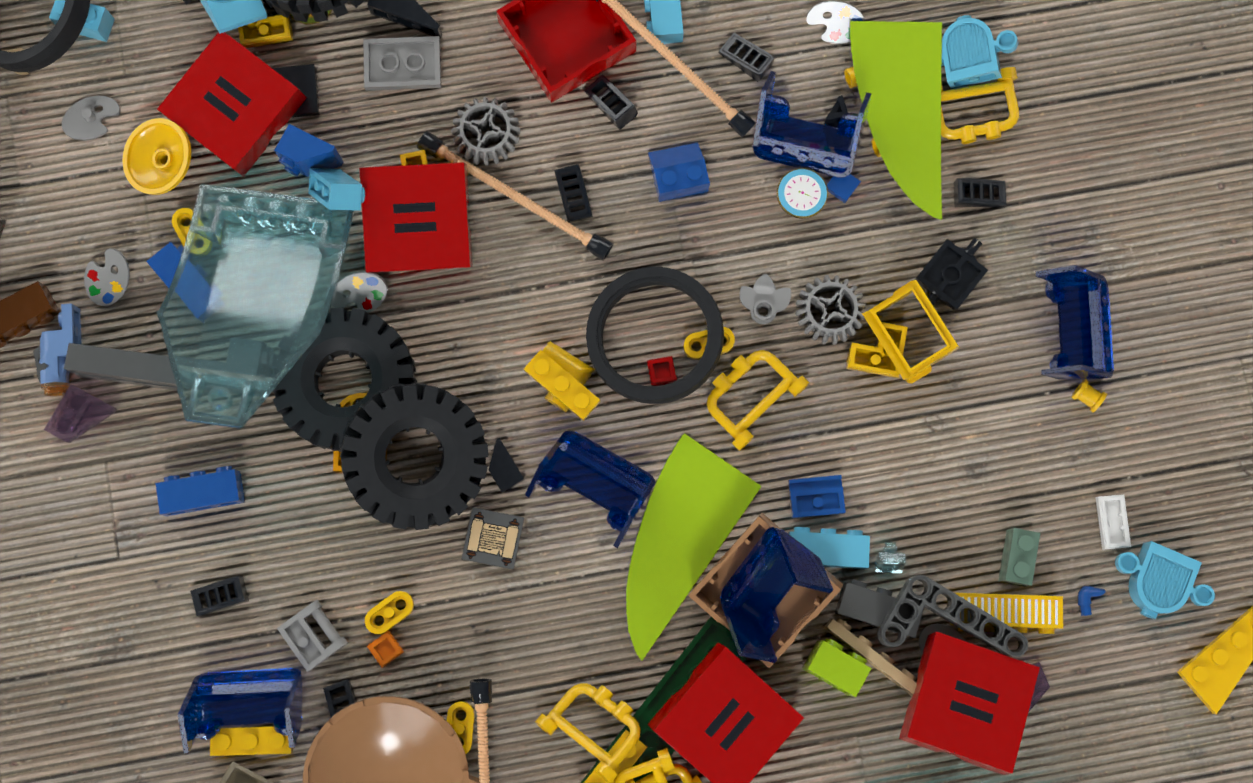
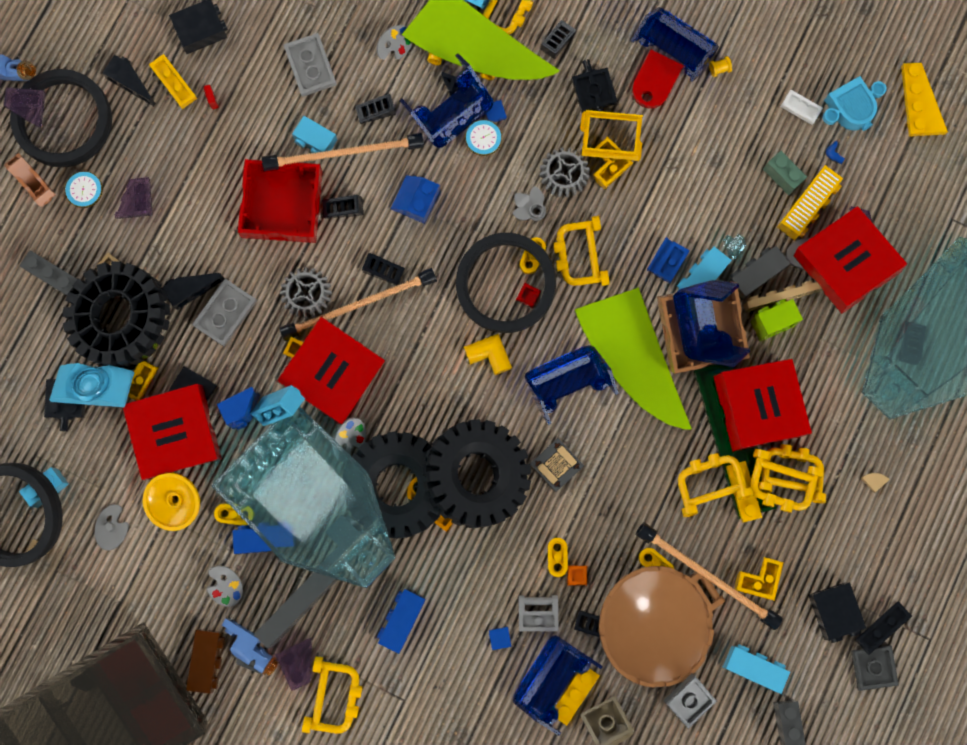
camera: 55 degrees left, 0 degrees up
(90, 497) = (323, 668): none -> yellow bar
(240, 591) = (477, 637): black slope -> none
(256, 613) = (500, 638): none -> blue tile
(504, 468) = (520, 428): black tile -> none
(562, 385) = (496, 357): yellow plate -> none
(951, 614) = (792, 232): dark grey beam -> none
(1018, 334) = (656, 79): none -> red tile

